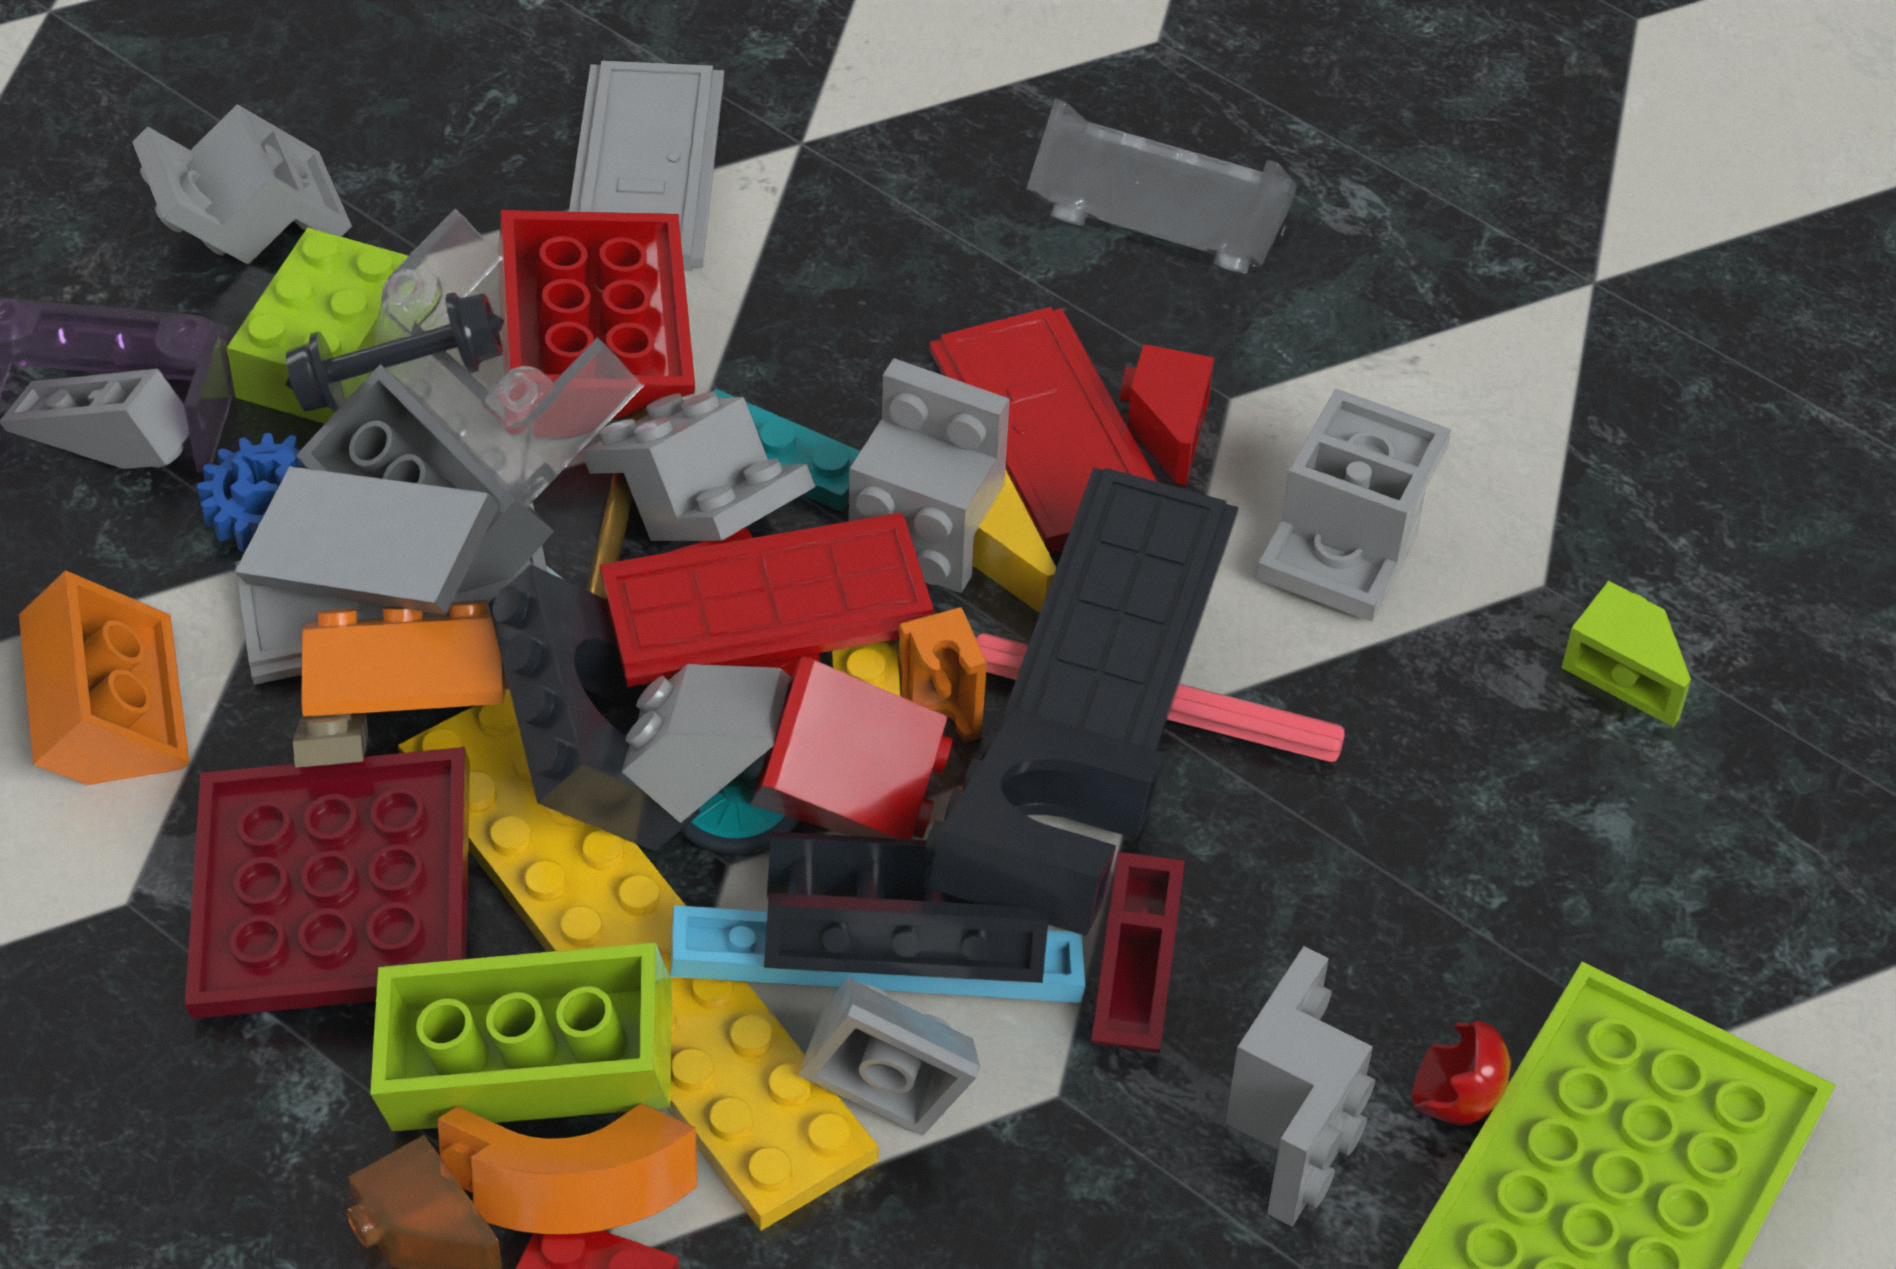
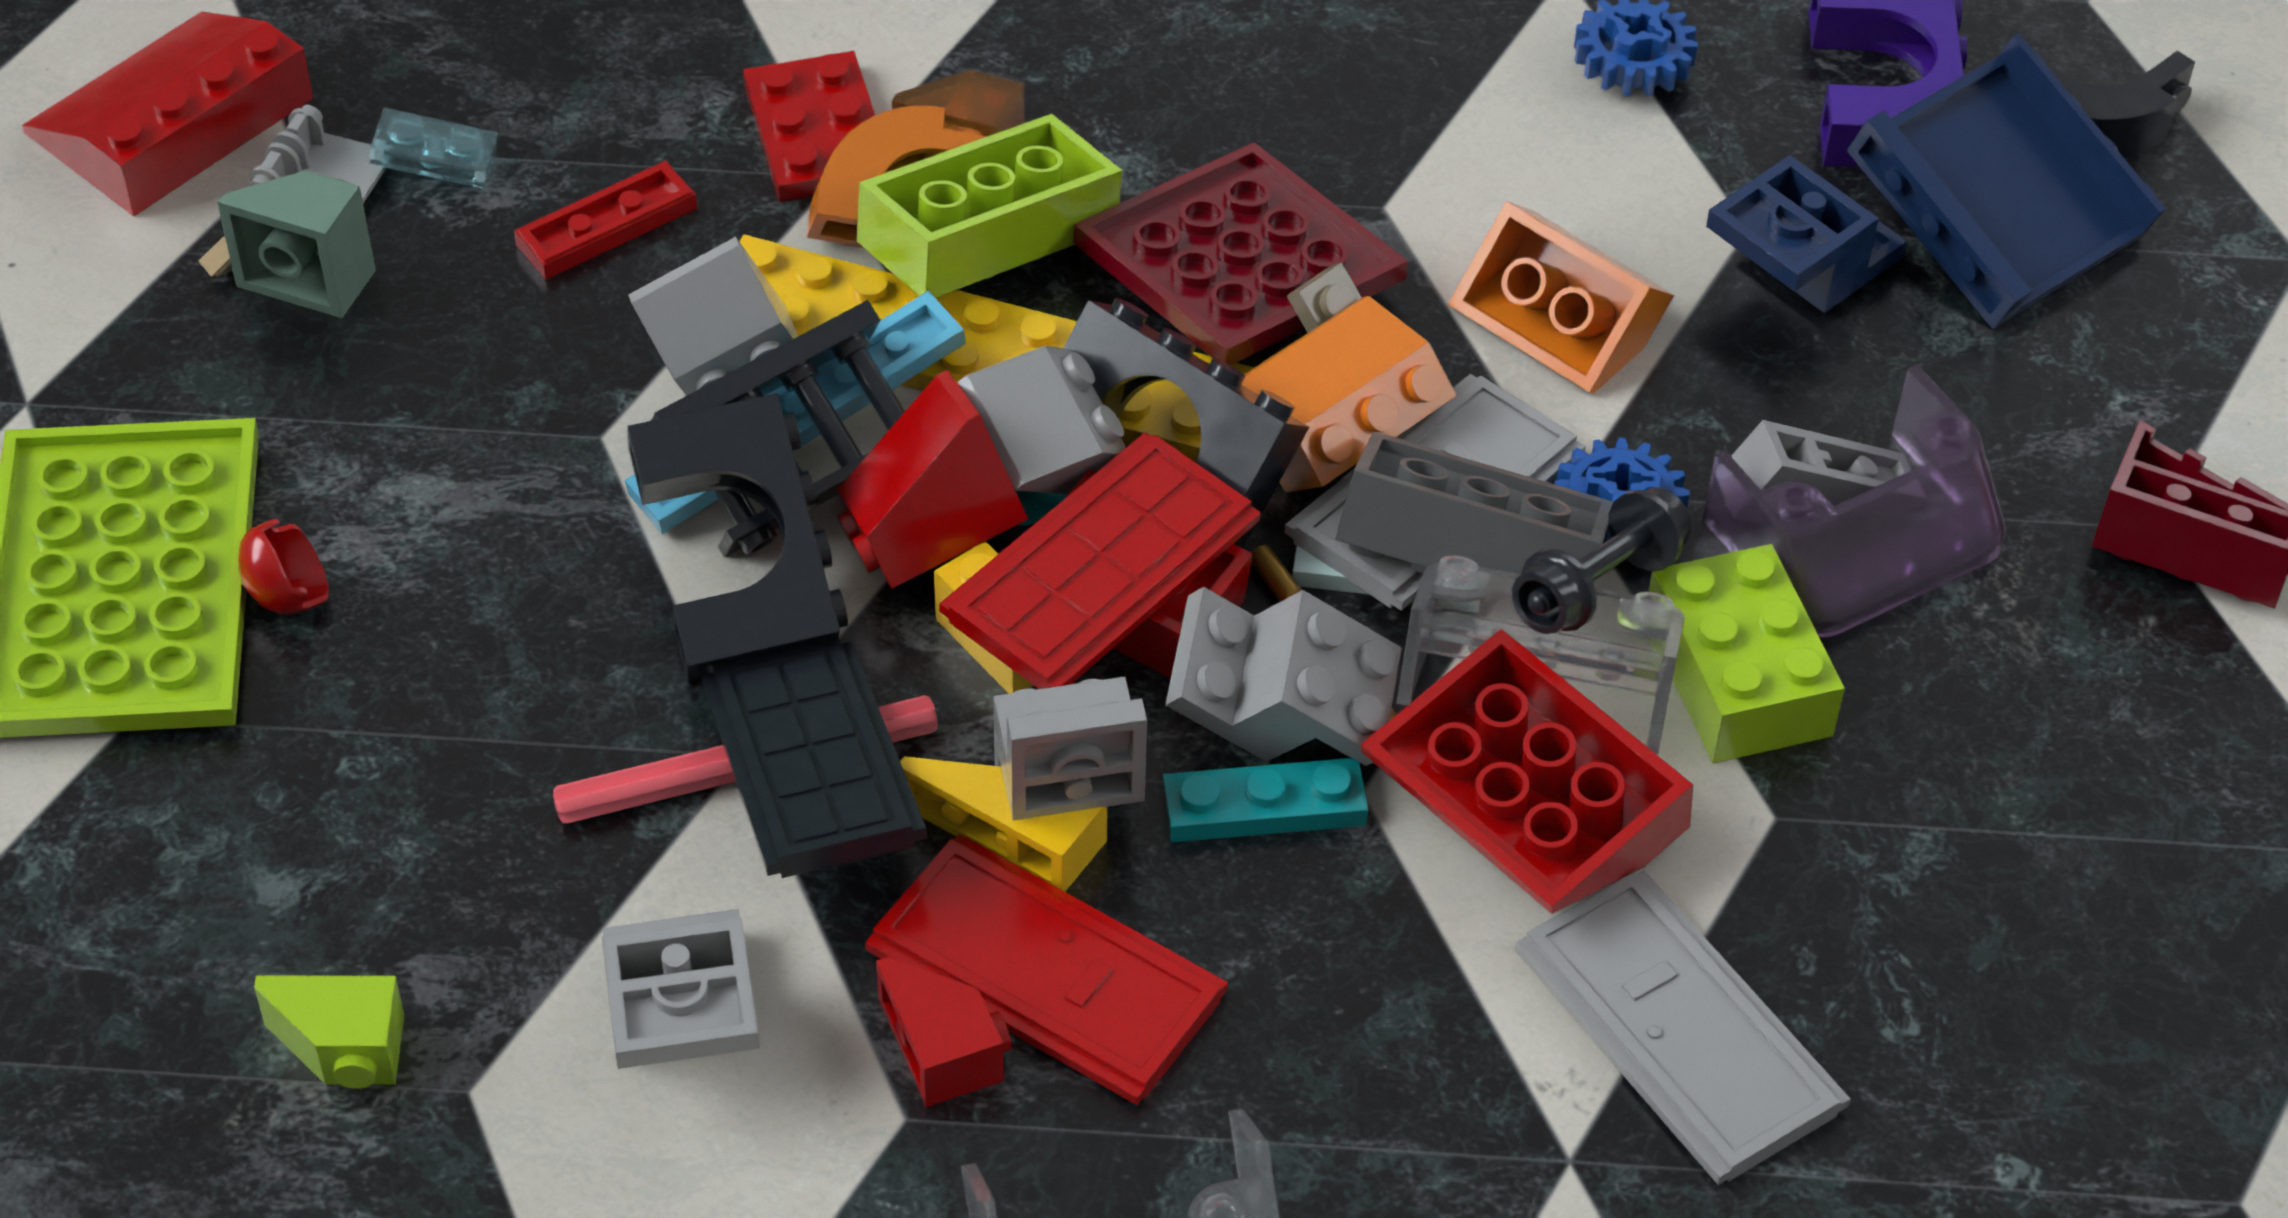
camera: 145 degrees right, 0 degrees up
(240, 185) = (1963, 719): light grey bracket -> none
(367, 539) = (1460, 431): tile -> none
(944, 669) = (906, 622): orange hinge -> none
(1138, 952) = (607, 541): dark red slope -> none
(1300, 1087) = (397, 469): light grey bracket -> none

